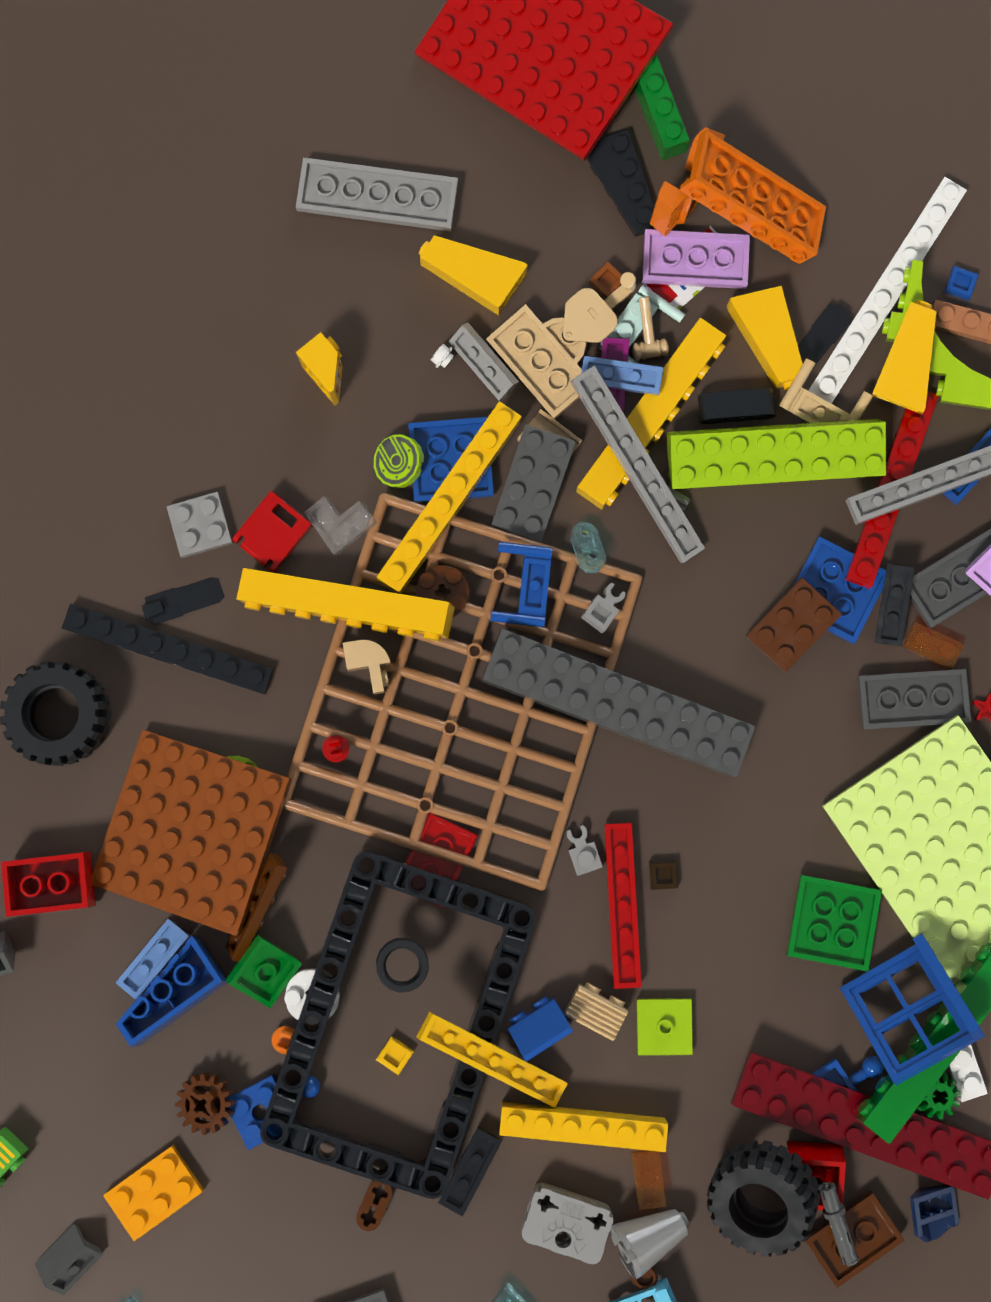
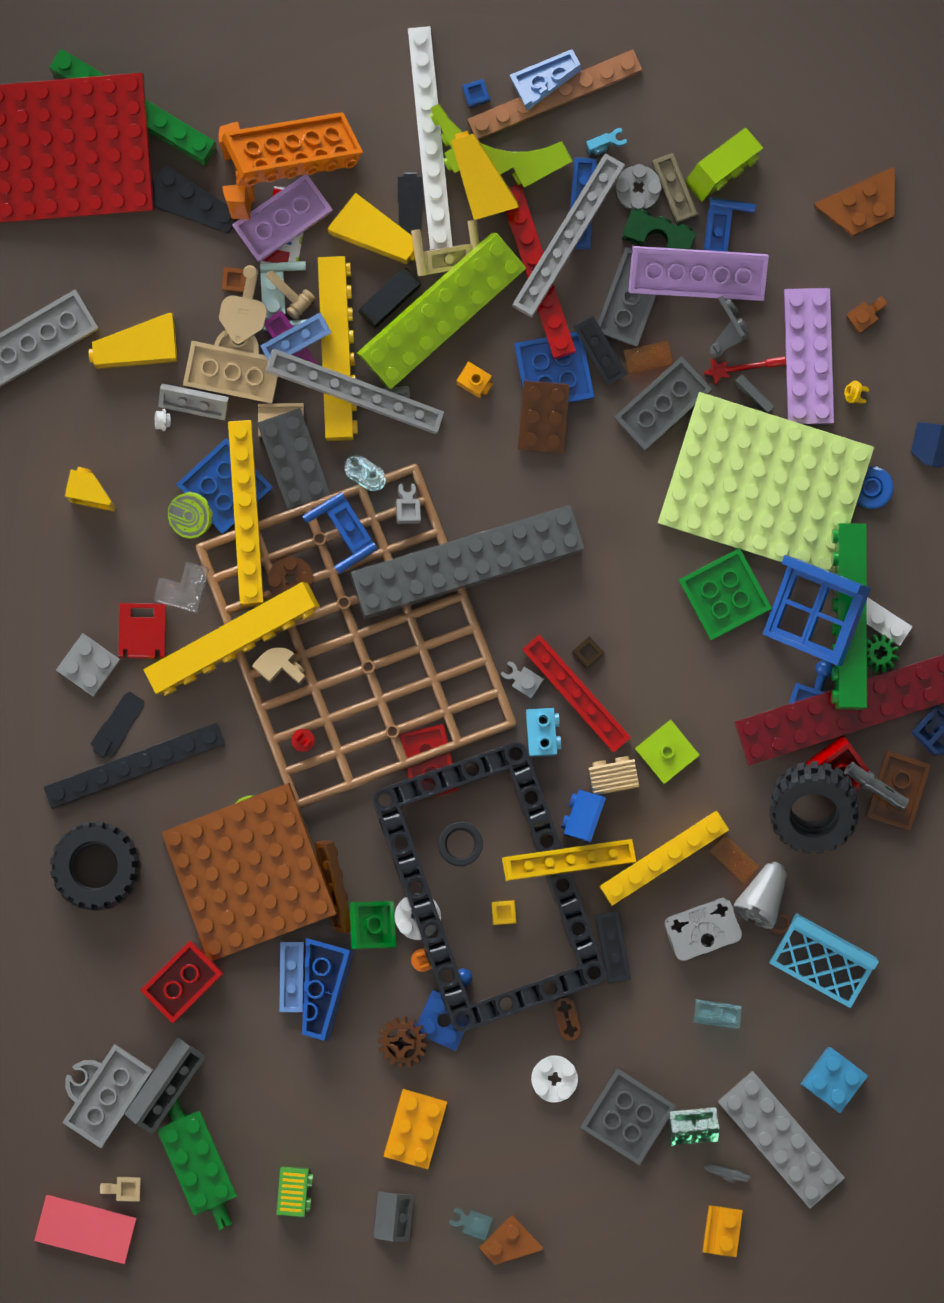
camera: 35 degrees left, 0 degrees up
(313, 1266) = (565, 1071): none -> white plate
(557, 914) = (542, 732): none -> medium azure brick
(756, 542) = (475, 380): none -> light orange brick

